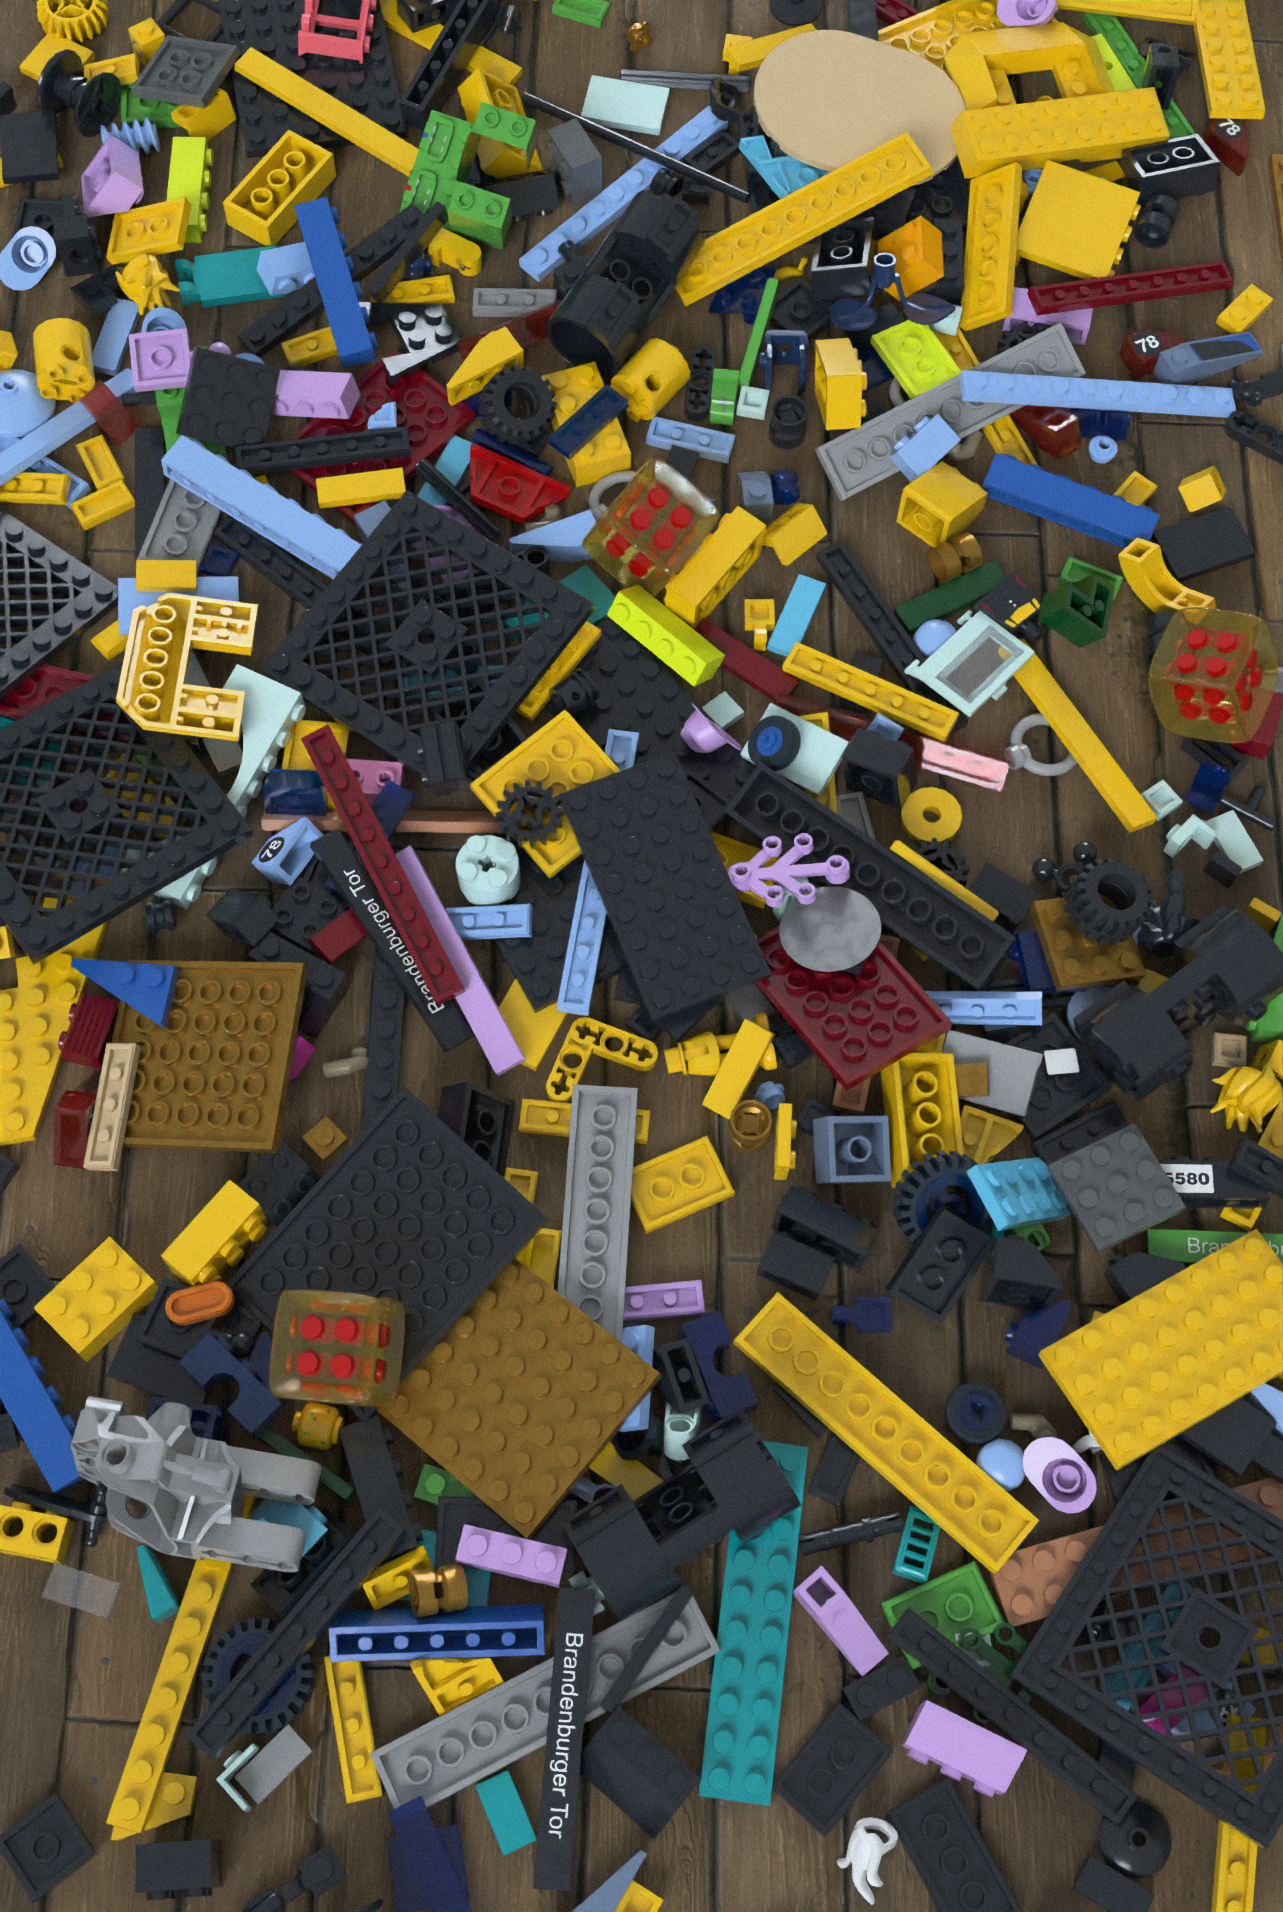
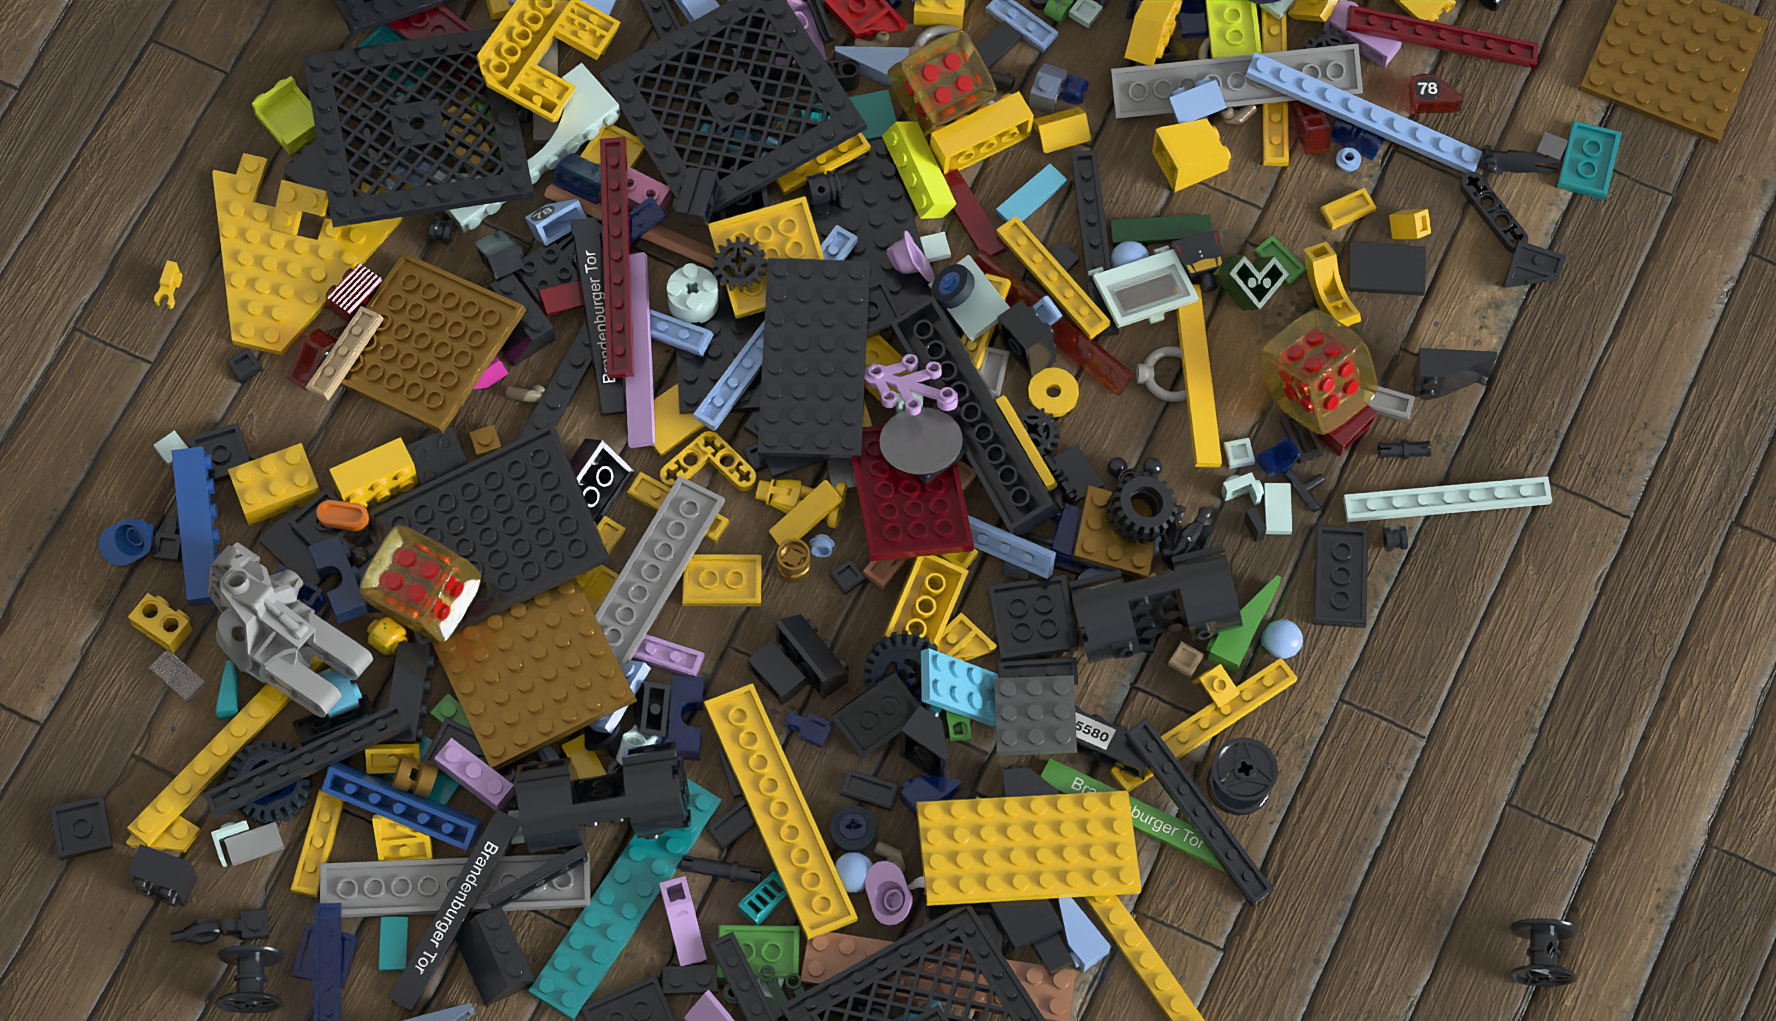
camera: 25 degrees right, 0 degrees up
(93, 1512) = (207, 626): black piece -> none
(140, 985) = (404, 275): blue wing -> none
(327, 1478) = (373, 668): dark green tile -> none
(760, 618) = (999, 186): yellow plate -> none
(784, 1131) = (817, 574): yellow plate -> none
(788, 422) = (1103, 38): black wheel -> none
(789, 1044) = (853, 515): black plate -> none
(851, 1149) = (859, 608): sand blue slope -> none
(955, 557) = (1180, 199): pearl gold wheel -> none
(966, 1357) = (869, 789): none -> black tile
(972, 1080) = (973, 596): pearl gold tile -> none
(1010, 1070) = (991, 597): light grey tile -> none
(1061, 1061) = (1050, 612): white sticker -> none
(1068, 502) = (1291, 192): blue brick -> none
(1205, 358) = (1475, 118): sand blue slope -> none
(1244, 310) = (1532, 91): yellow plate -> none
(1248, 1095) = (1176, 695): yellow hair -> none
(1263, 914) = (1264, 569): yellow tile -> none

